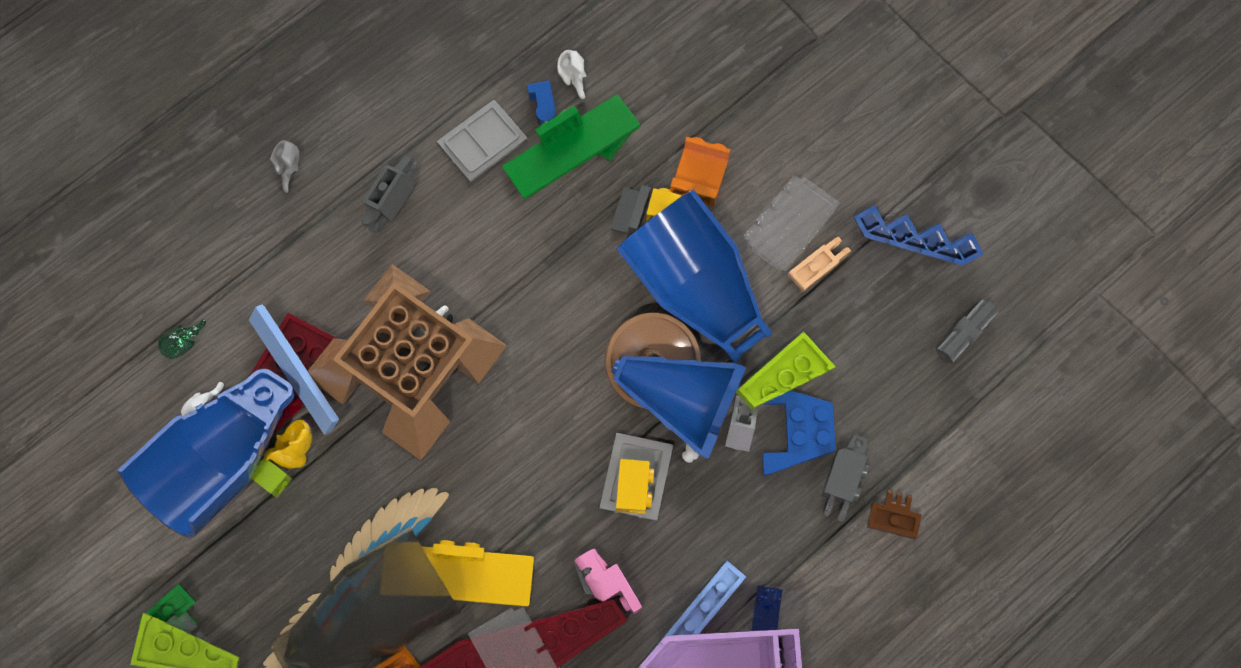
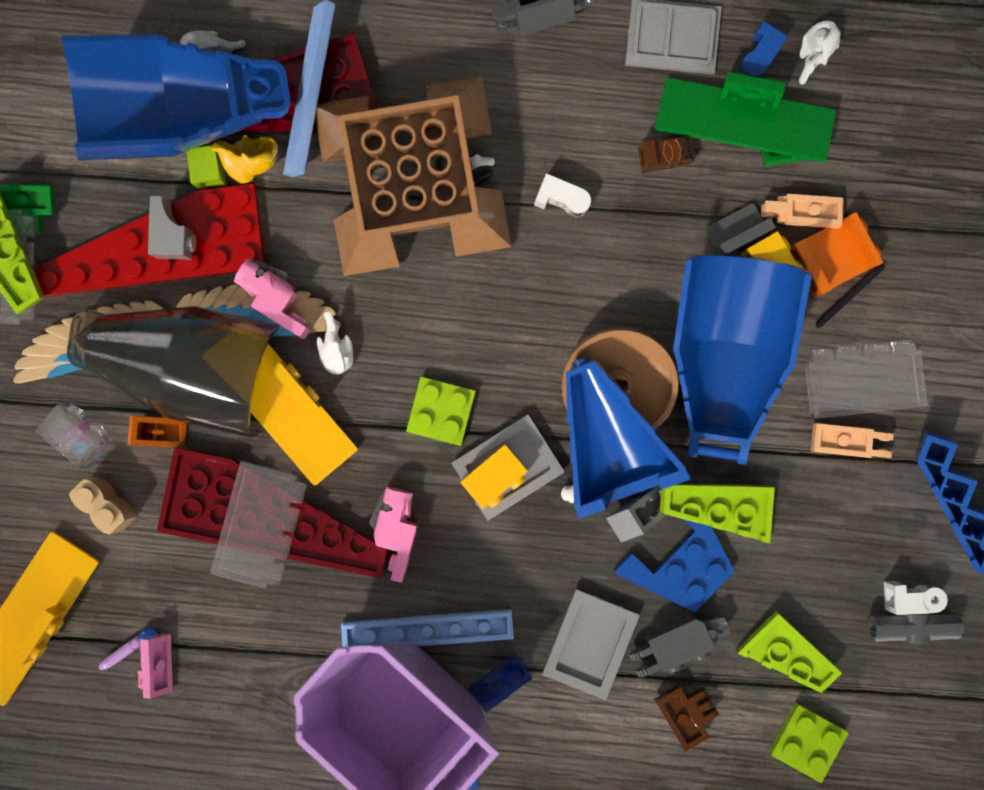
camera: 50 degrees right, 15 degrees up
(288, 538) = (166, 236): none -> light grey arch
(297, 536) = (225, 233): none -> red wing
(390, 512) = (272, 294): none -> bright pink plate
(461, 512) = (334, 353): none -> white piece
(509, 286) = (563, 195): none -> white leg
(545, 208) = (665, 154): none -> reddish brown leg
(561, 483) = (440, 411): none -> lime plate
(658, 163) = (805, 210): none -> light nougat hinge
(733, 186) = (862, 284): none -> black axle
(795, 532) = (590, 644): none -> light grey piece
(913, 418) = (785, 649): none -> lime wing
(953, 313) = (916, 600): none -> white leg
(981, 460) = (808, 742): none -> lime plate

